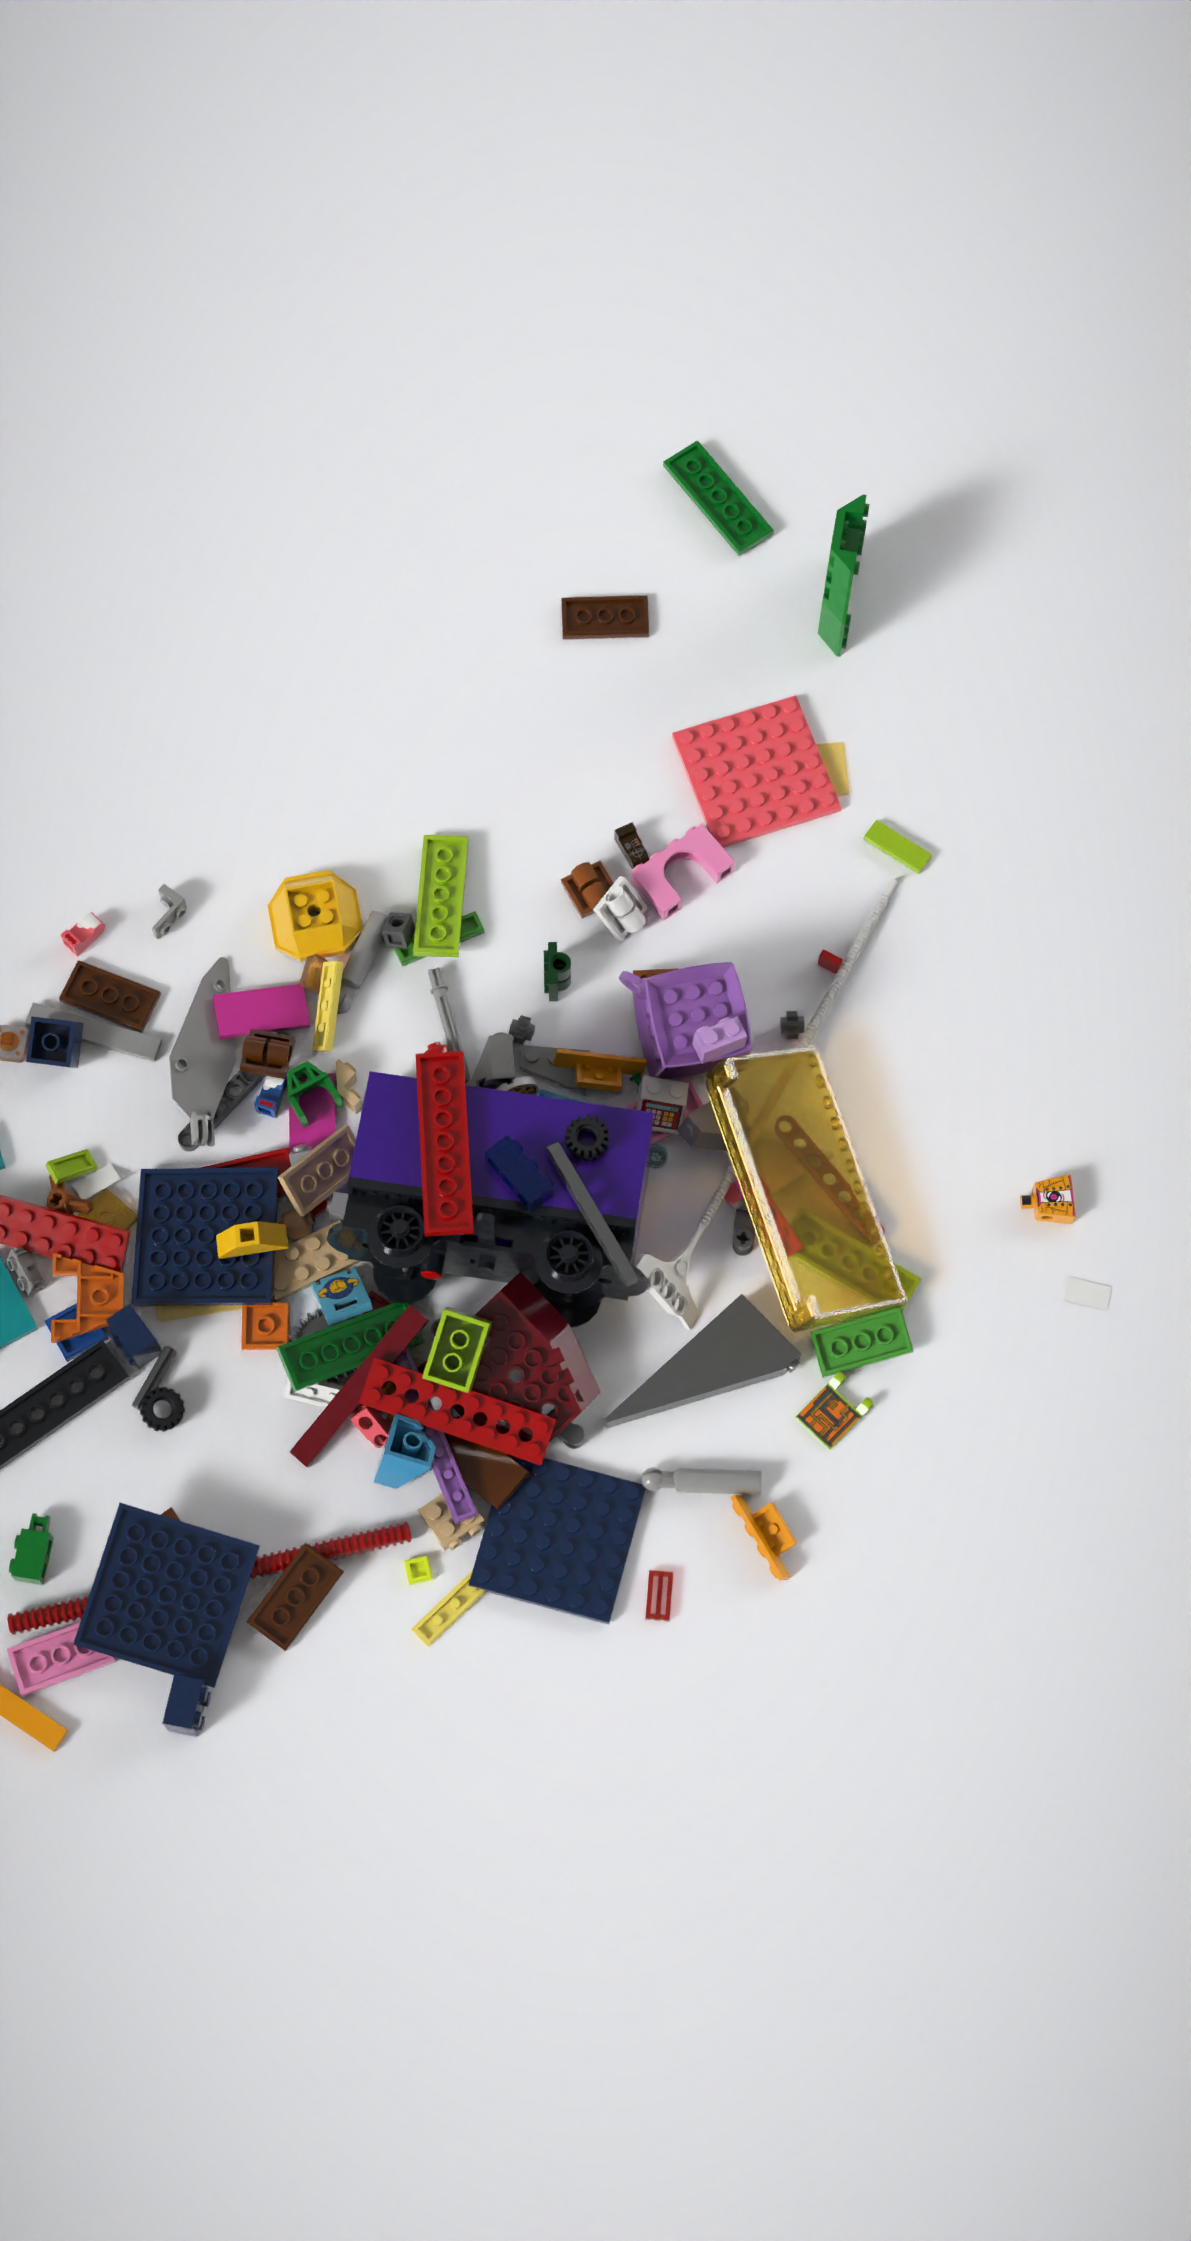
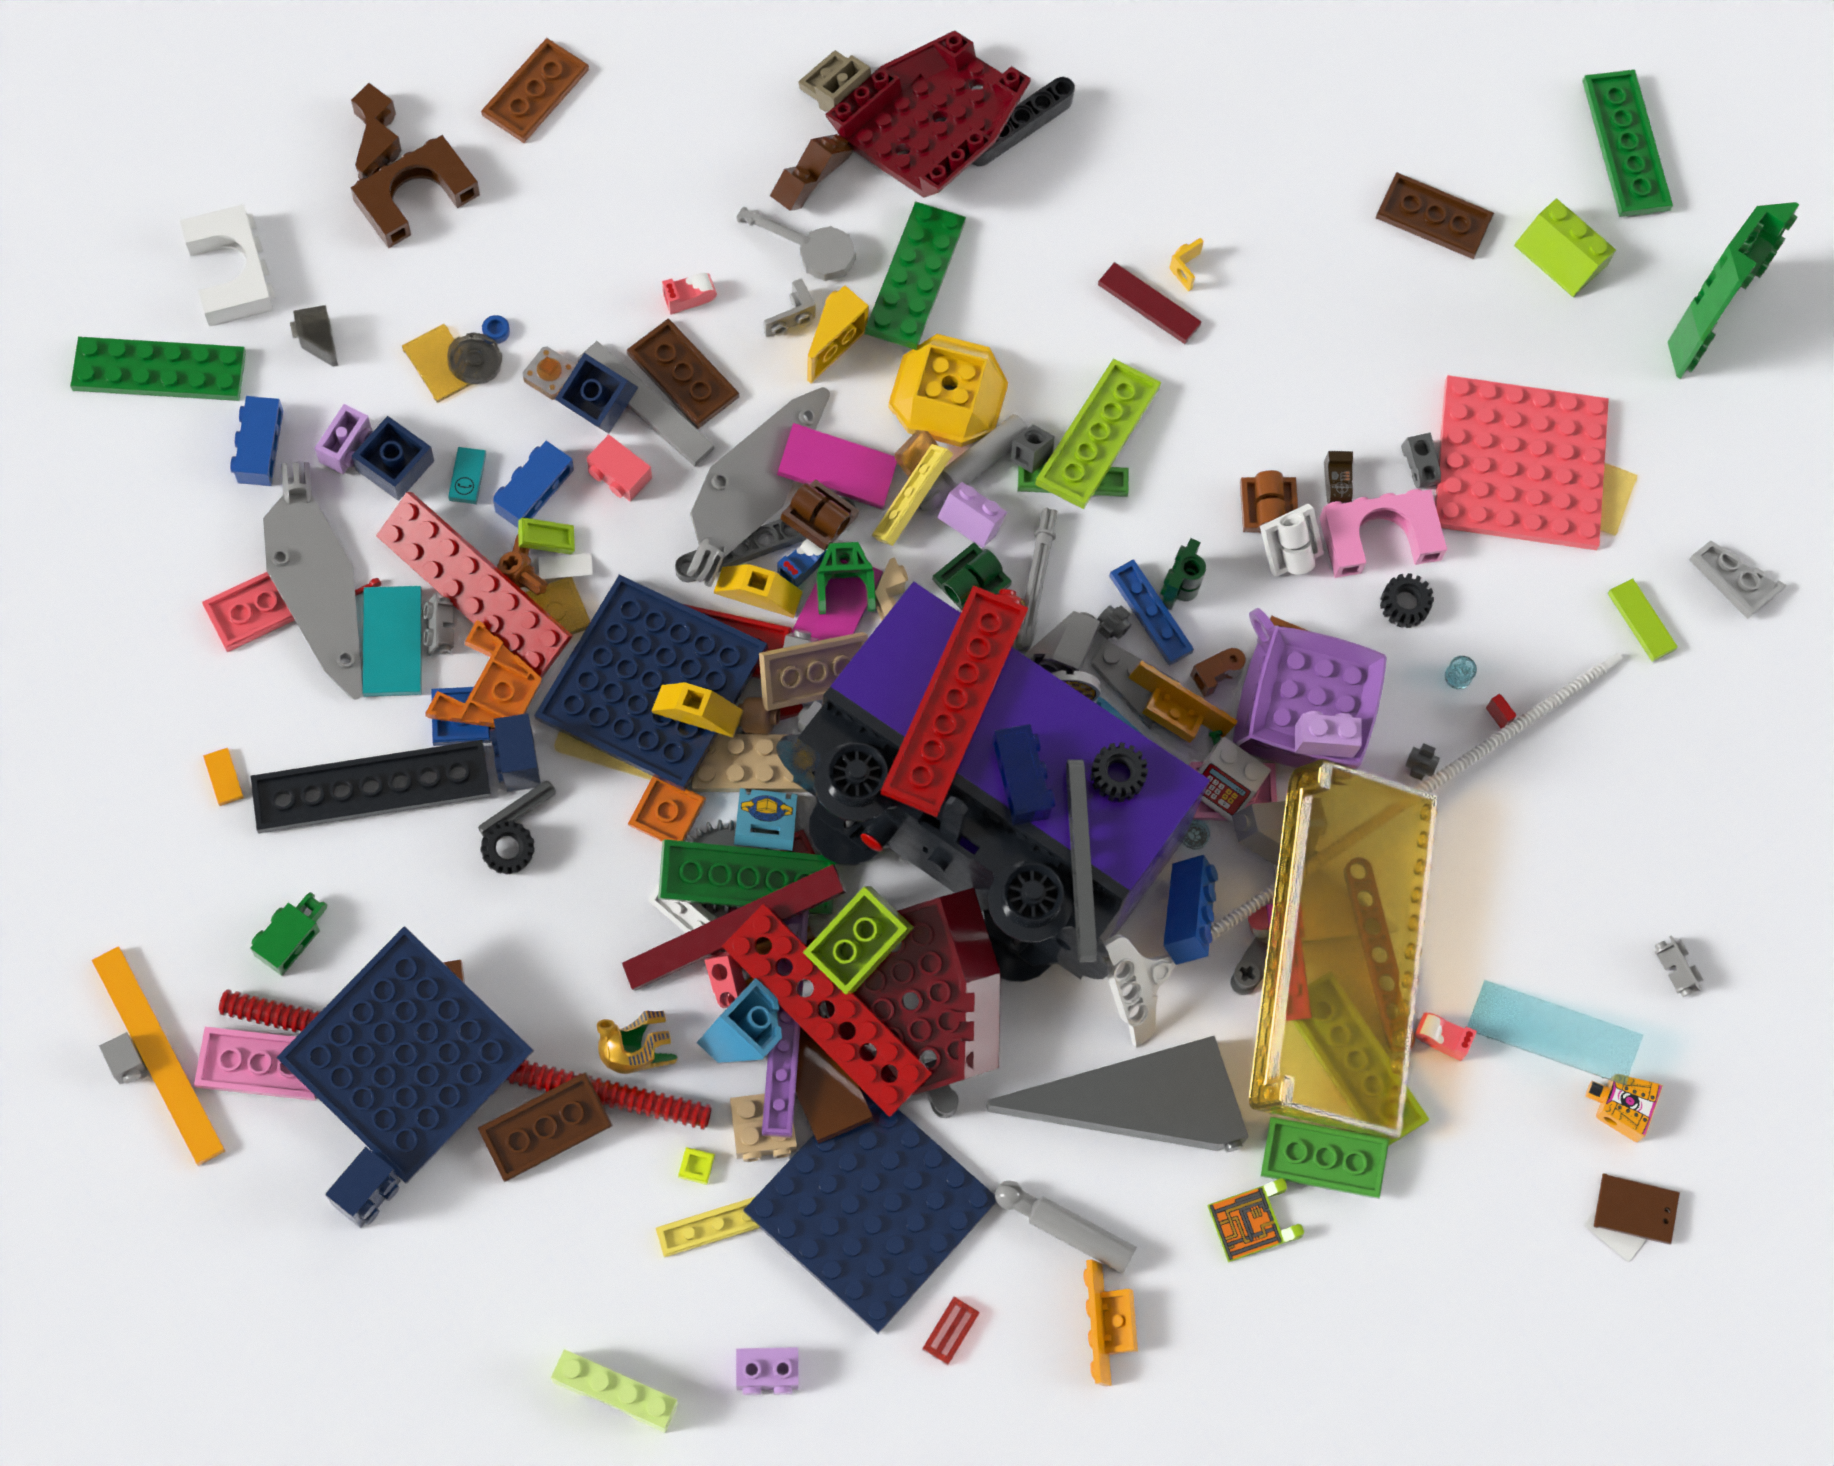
camera: 20 degrees right, 0 degrees up
(41, 1132) = (533, 483): none -> blue brick
(99, 1090) = (618, 468): none -> coral brick
(111, 721) = (834, 79): none -> dark tan brick
(130, 790) = (816, 163): none -> reddish brown arch
(170, 855) = (824, 252): none -> light grey piece
(172, 707) = (906, 97): none -> dark red wedge
(211, 905) = (838, 329): none -> yellow slope
(246, 841) = (915, 275): none -> green plate
(249, 1130) = (759, 588): none -> yellow slope
(266, 697) = (1032, 115): none -> black beam
(321, 1513) = (622, 1047): none -> pearl gold piece
(379, 1000) = (972, 514): none -> lavender brick
(400, 1046) = (968, 569): none -> dark green plate
(429, 780) = (1149, 303): none -> dark red tile
(435, 738) = (1182, 256): none -> yellow bracket
(442, 1756) = (614, 1390): none -> yellowish green arch
(543, 1688) = (766, 1370): none -> lavender brick
(544, 1009) = (1151, 612): none -> blue plate
(611, 1029) = (1217, 668): none -> dark orange leg
(681, 1212) = (1190, 909): none -> blue brick
(685, 804) = (1422, 460): none -> dark grey leg
(711, 598) = (1565, 247): none -> lime slope
(727, 901) = (1414, 587): none -> black tyre
(789, 942) = (1466, 669): none -> clear light blue wheel
(903, 1214) = (1445, 1036): none -> coral leg
(952, 787) = (1739, 583): none -> light grey wing
(978, 1173) = (1555, 1032): none -> clear light blue window
(1035, 1078) = (1684, 976): none -> light grey hinge
(1094, 1270) = (1636, 1209): none -> reddish brown container

